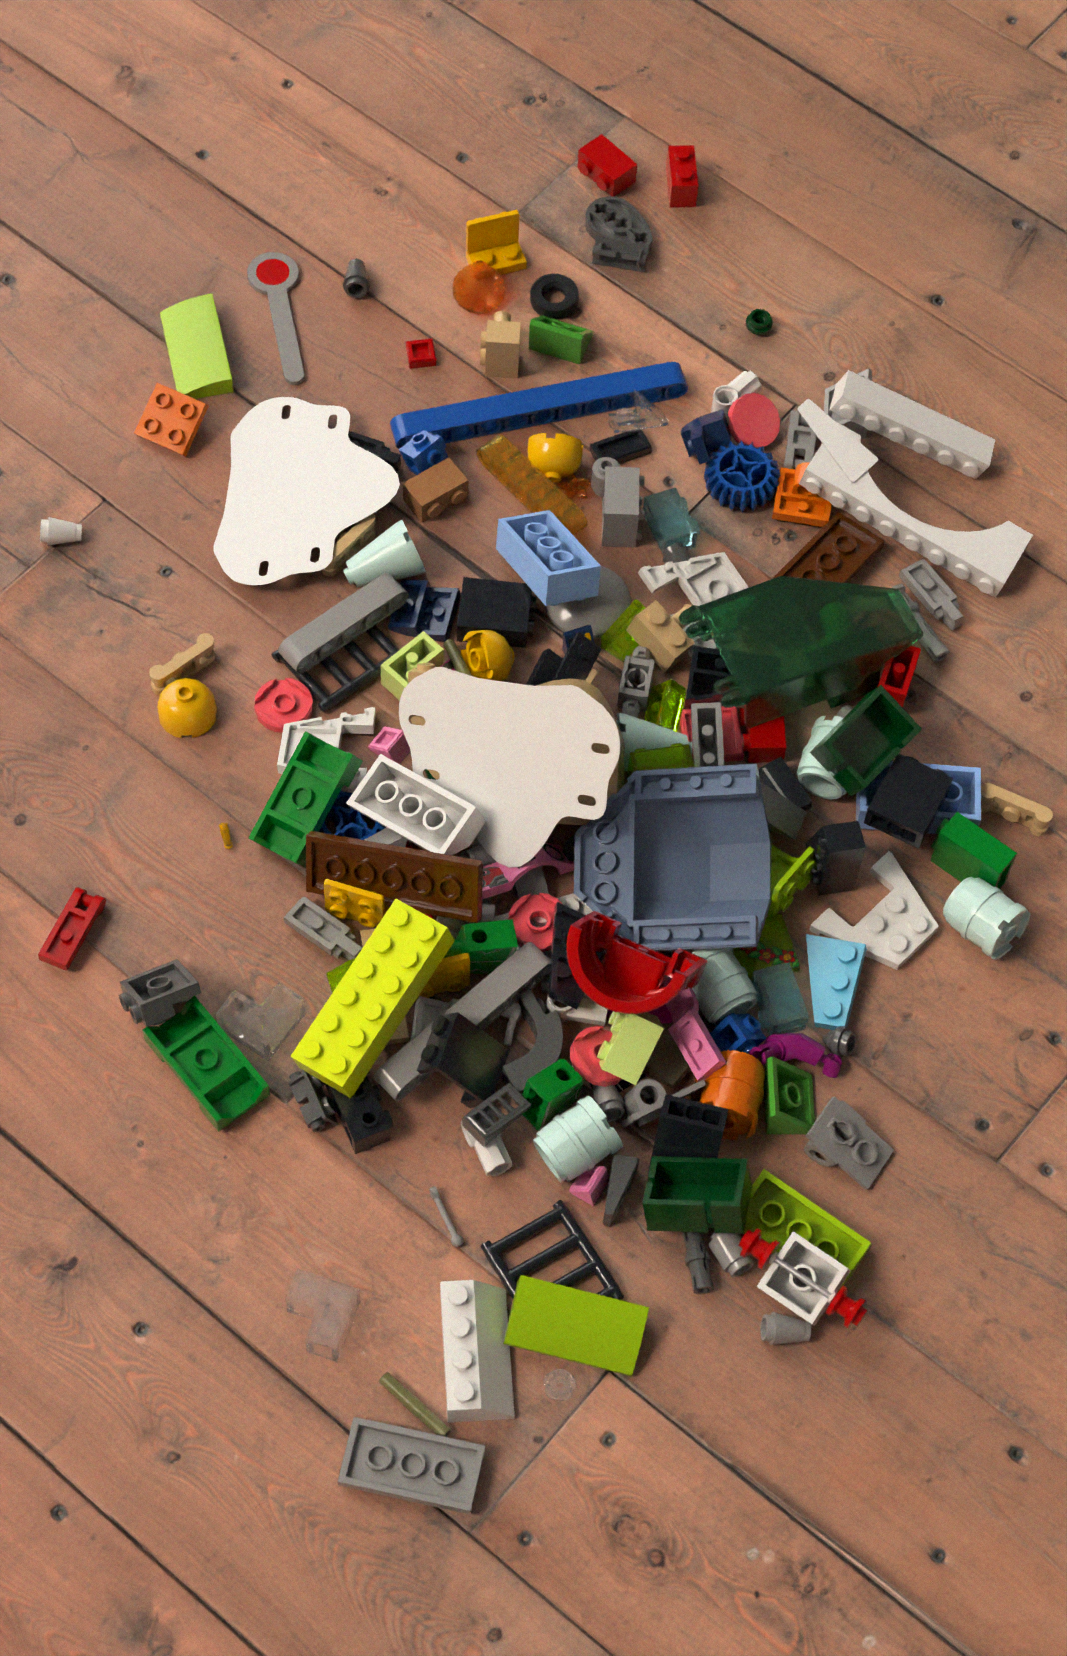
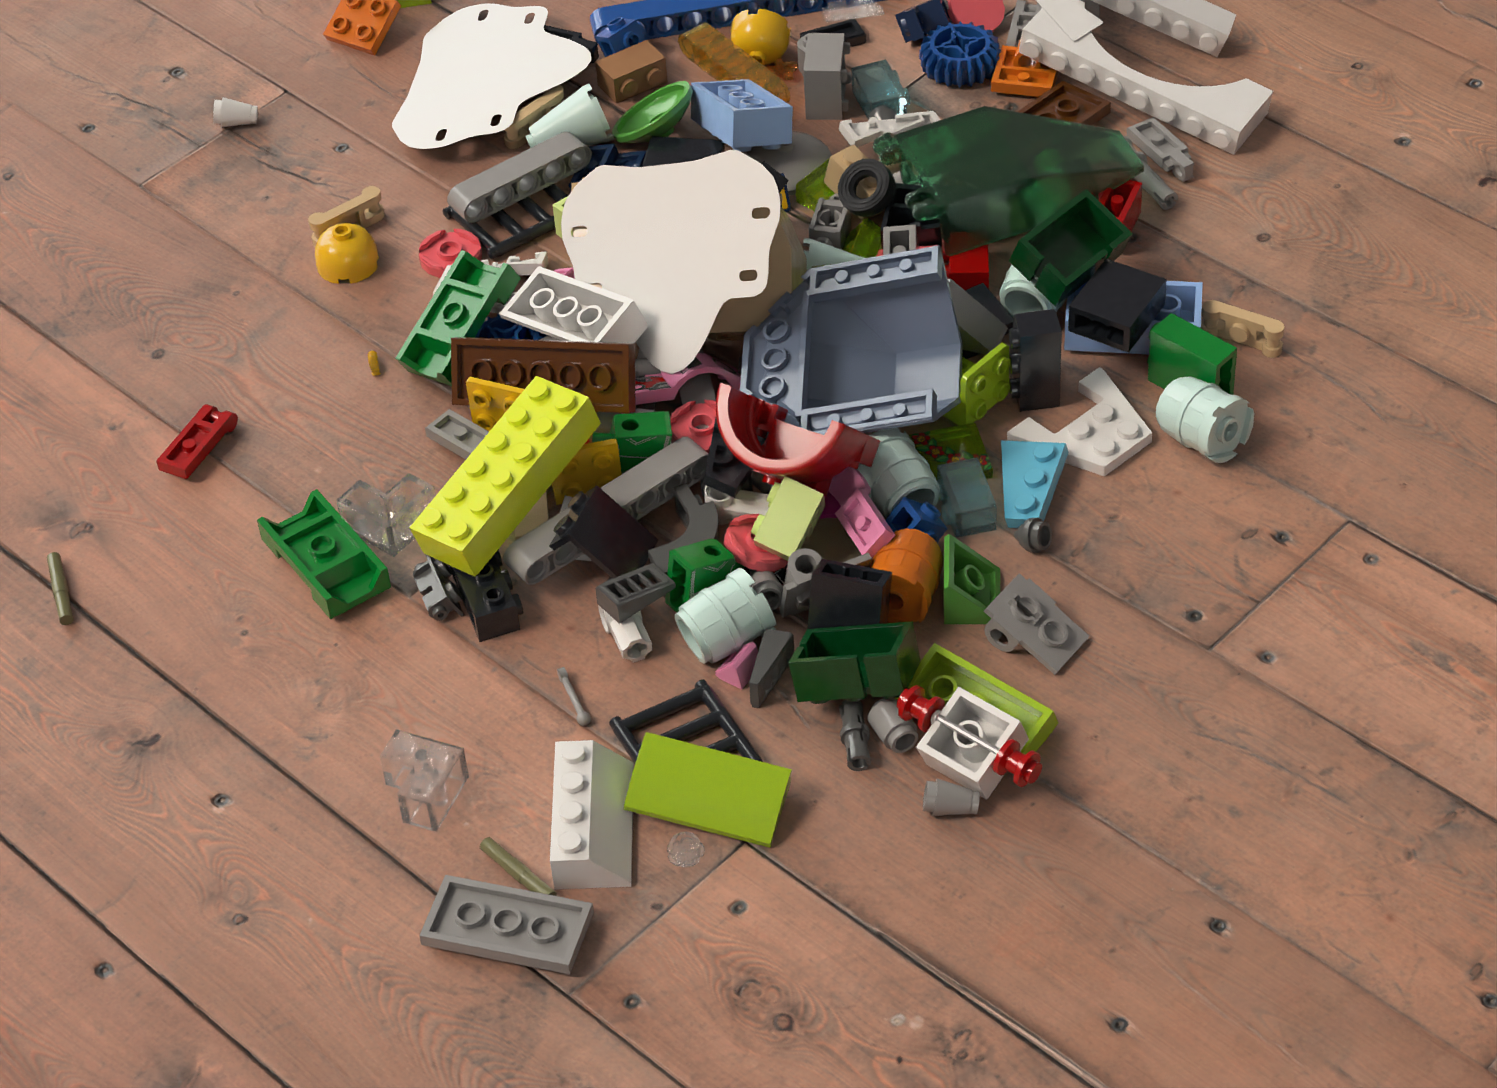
camera: 10 degrees right, 15 degrees down
(154, 992) = (272, 491): dark grey plate -> none
(462, 546) = (654, 114): none -> bright green dish
(513, 1014) = (668, 515): white hand -> none
(654, 649) = (878, 200): none -> black tyre
(798, 1046) = (989, 538): magenta arm -> none

